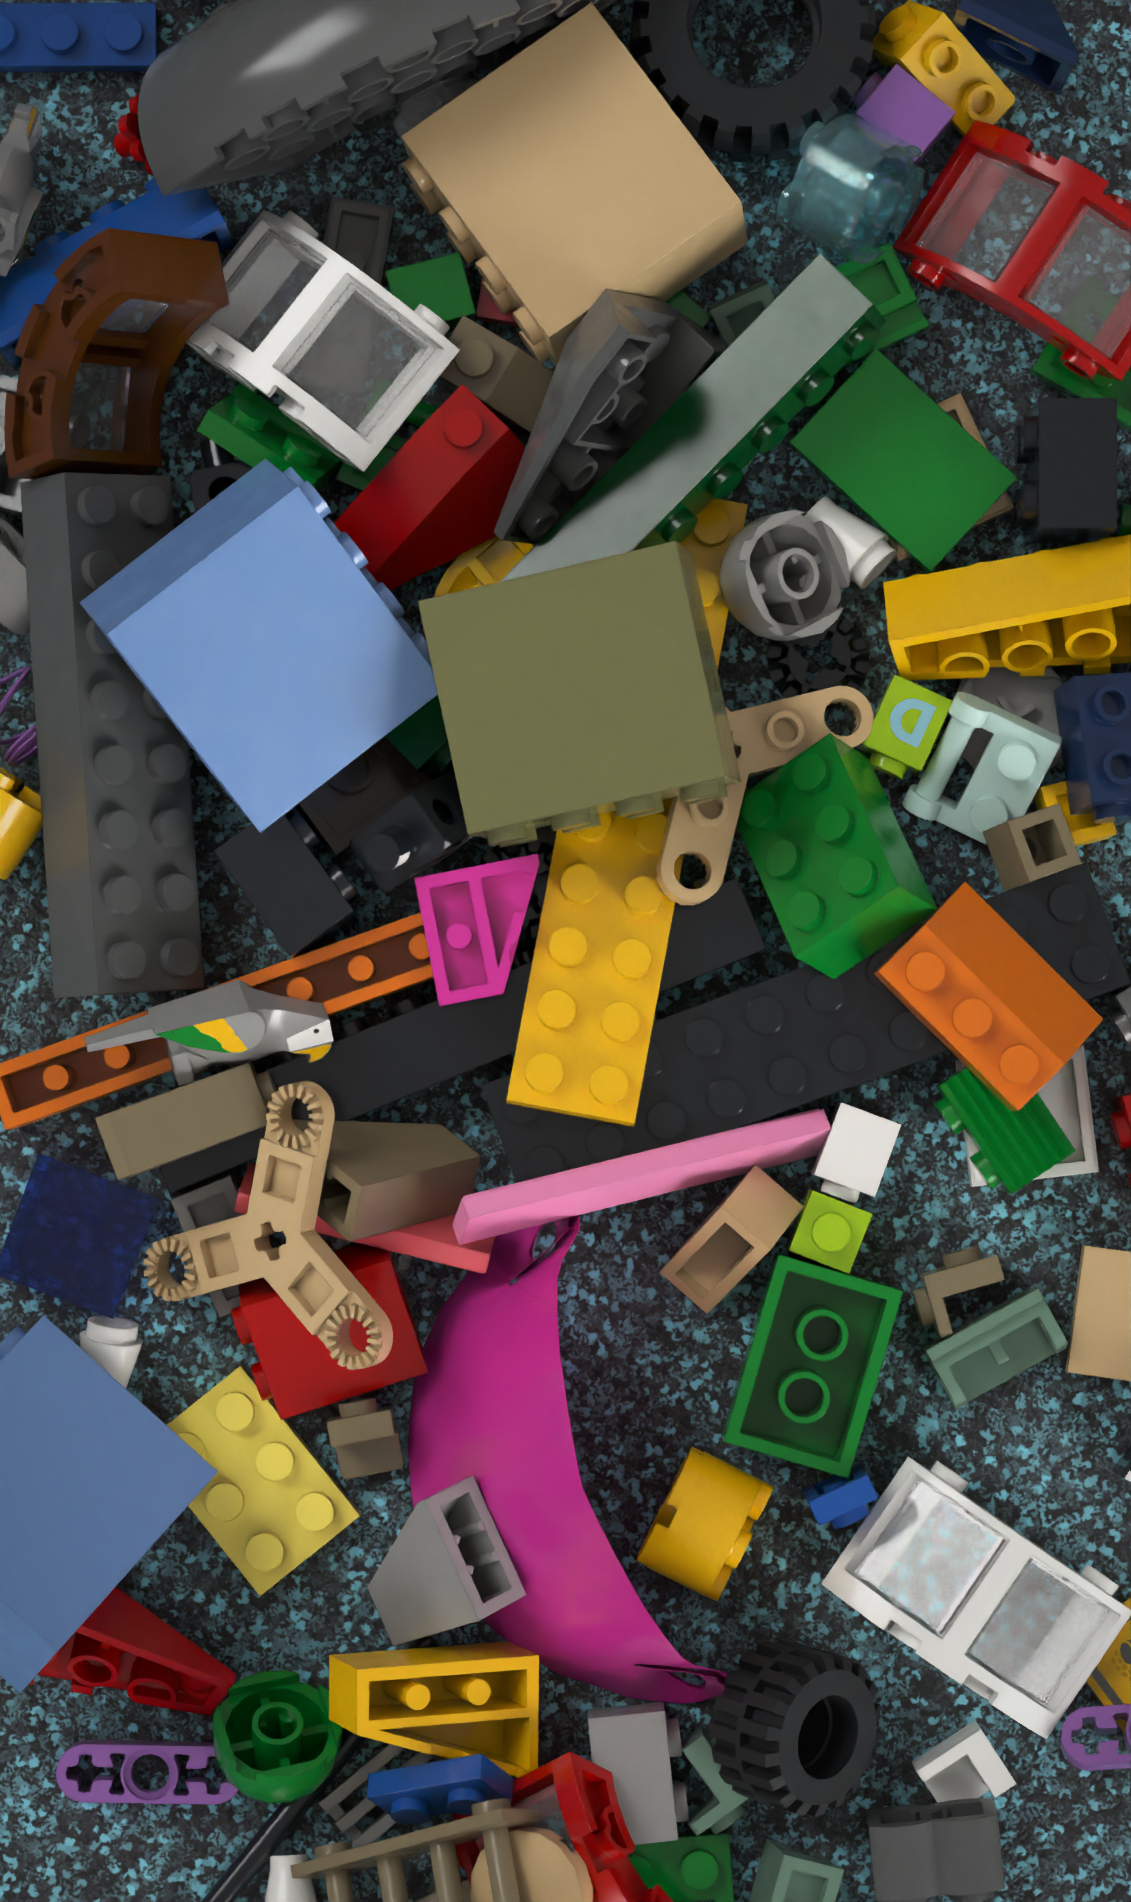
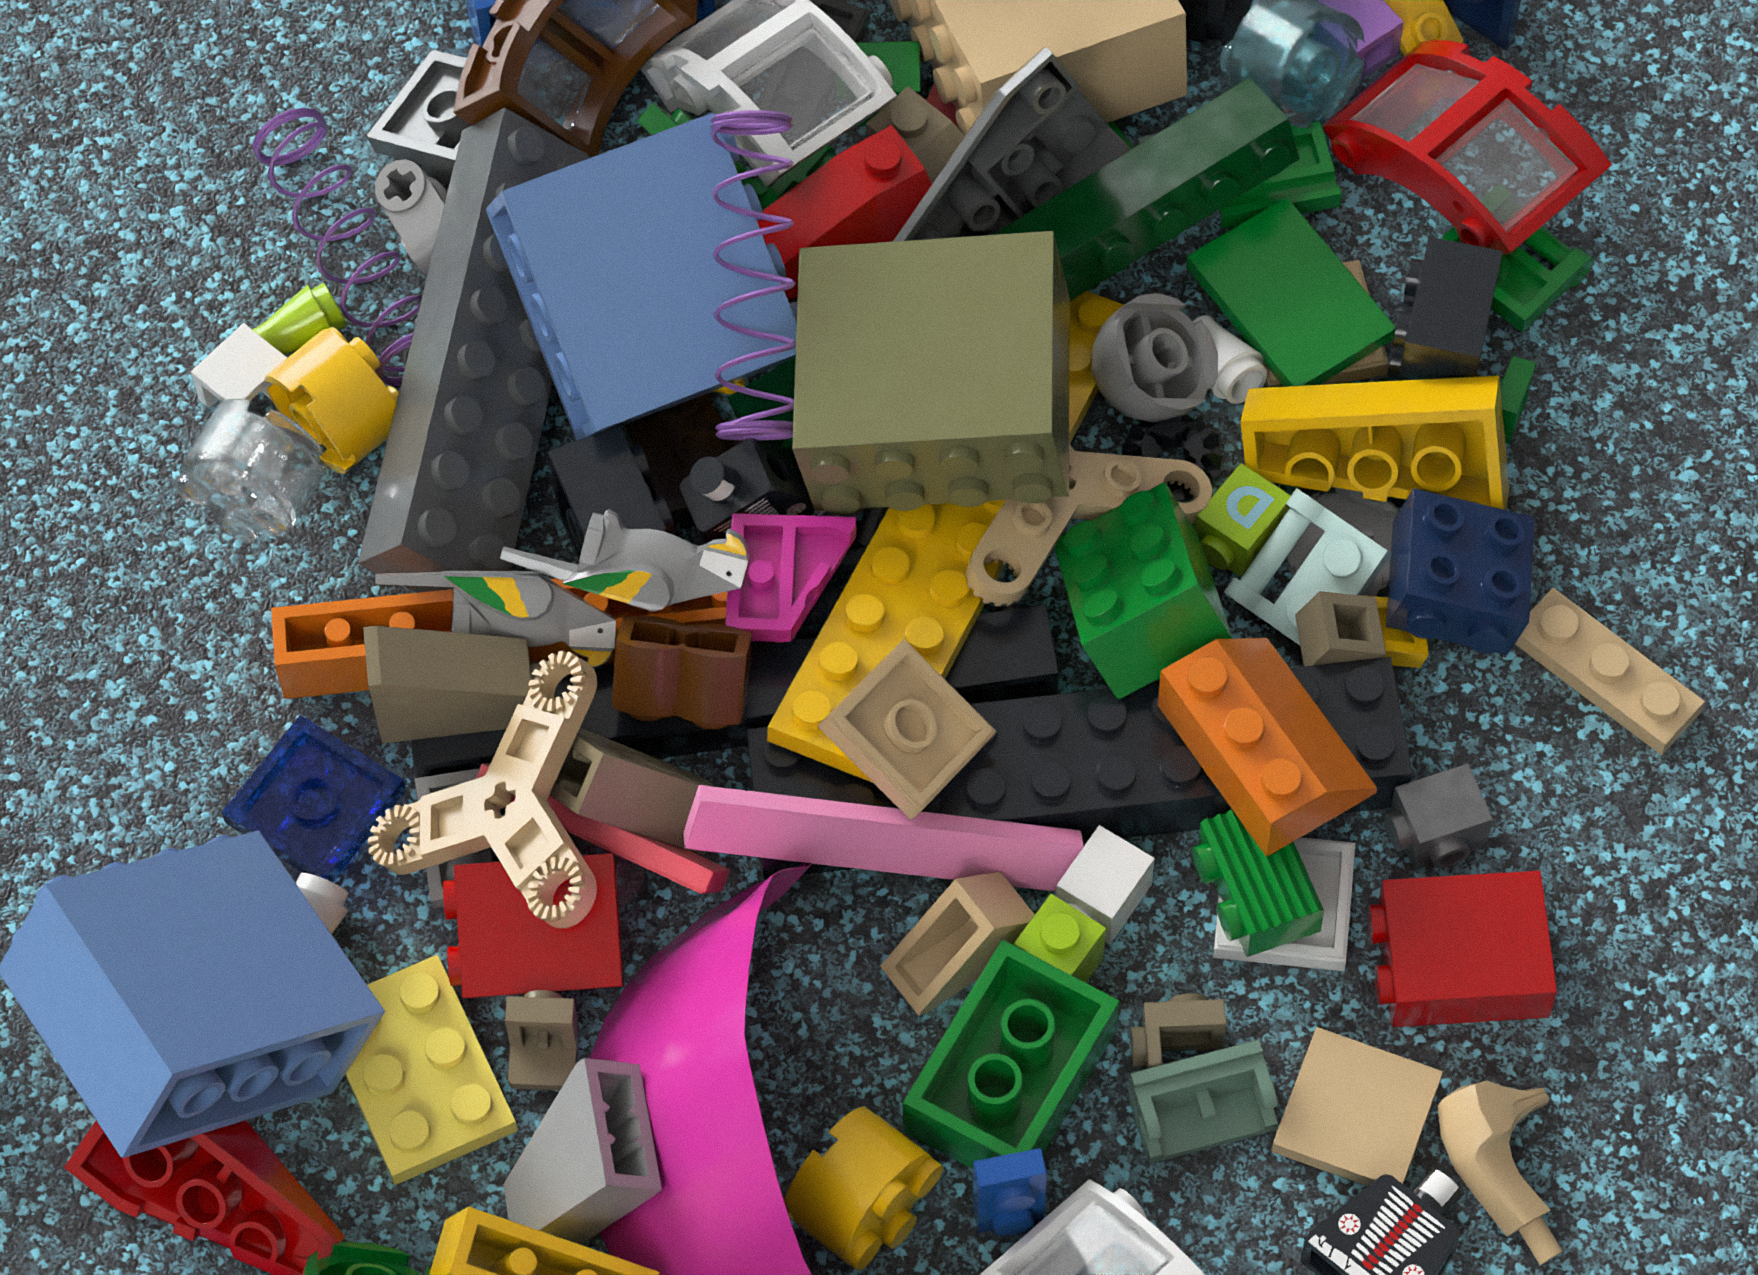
camera: 15 degrees right, 25 degrees down
(343, 970) = (644, 564): none -> light grey animal
(356, 513) = (753, 123): none -> medium lavender piece
(407, 1056) = (681, 671): none -> reddish brown brick
(643, 1077) = (907, 729): none -> tan tile

